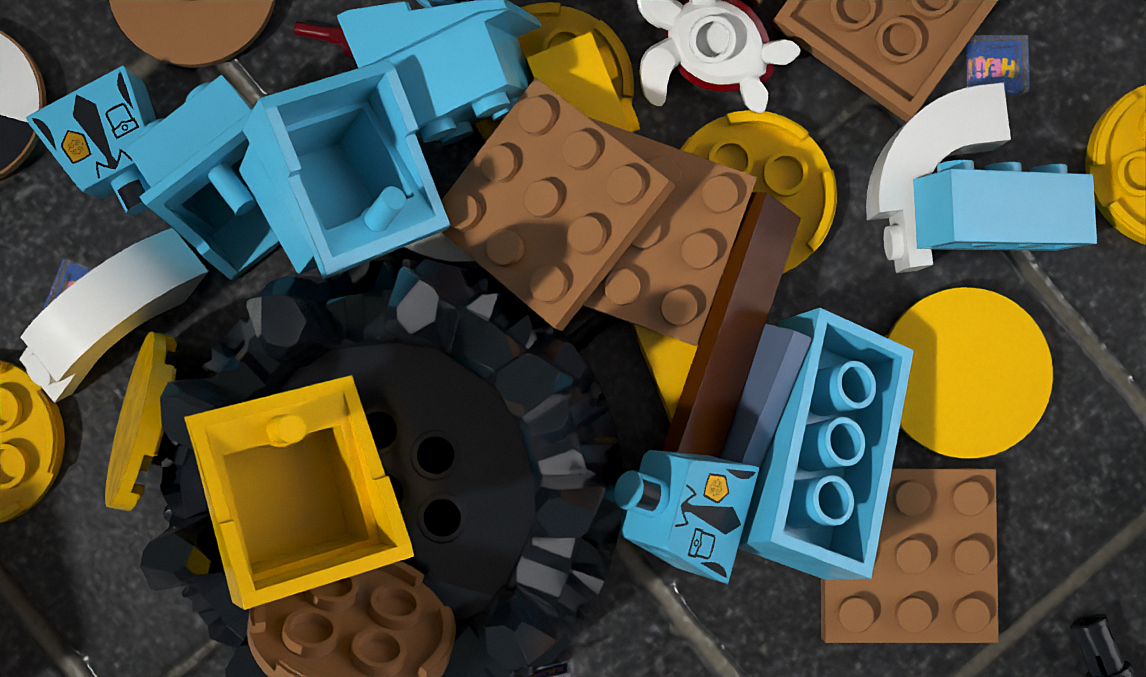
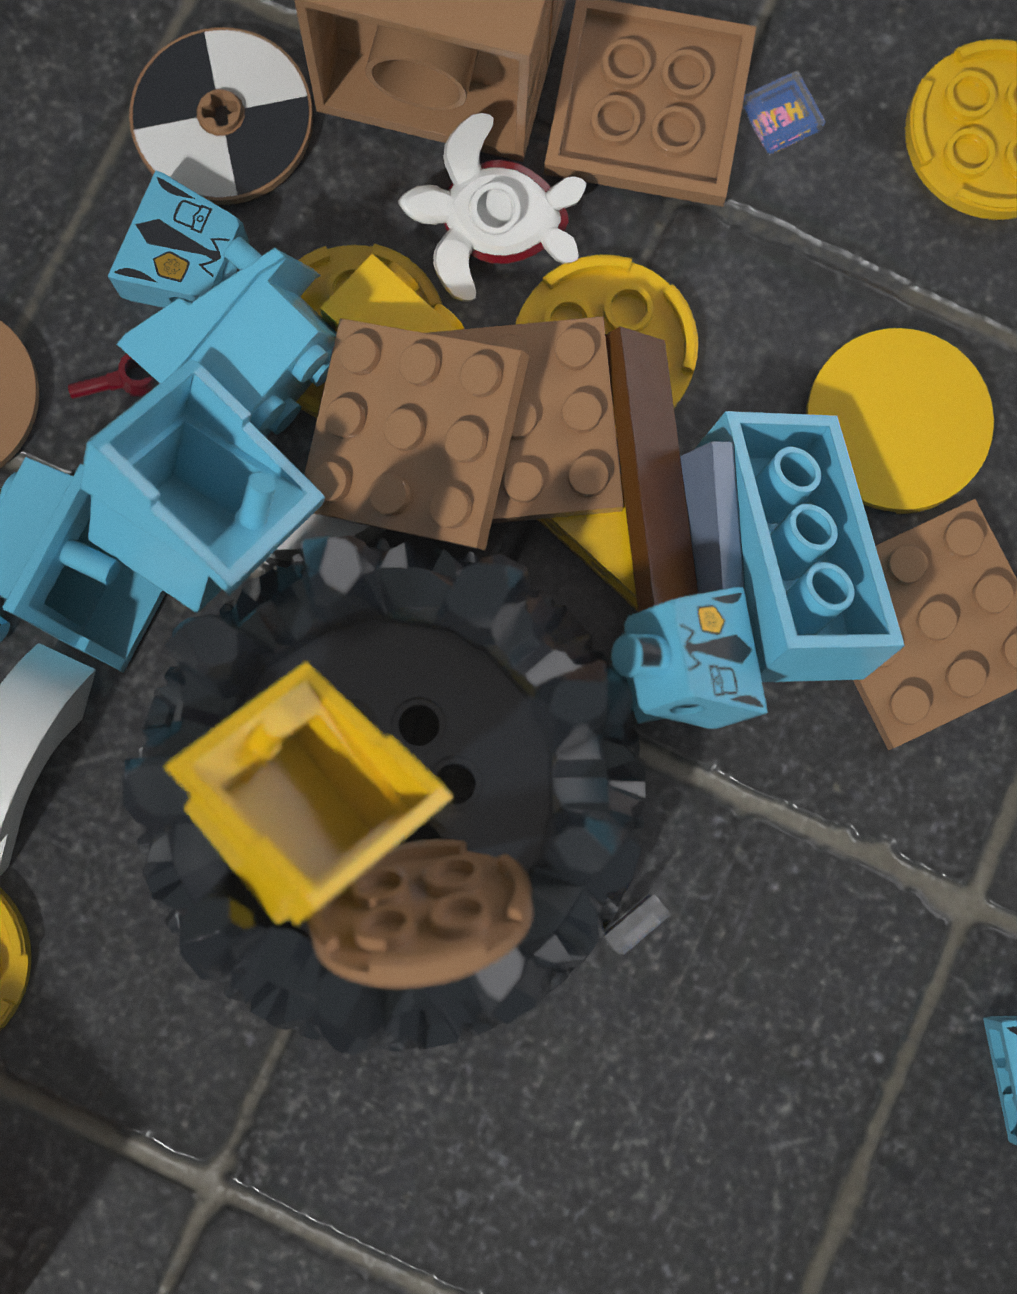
camera: 30 degrees left, 5 degrees down
(139, 423) = (100, 844): yellow tile -> none
(949, 126) = (766, 189): white arch -> none
(1004, 208) = (856, 240): medium azure brick -> none

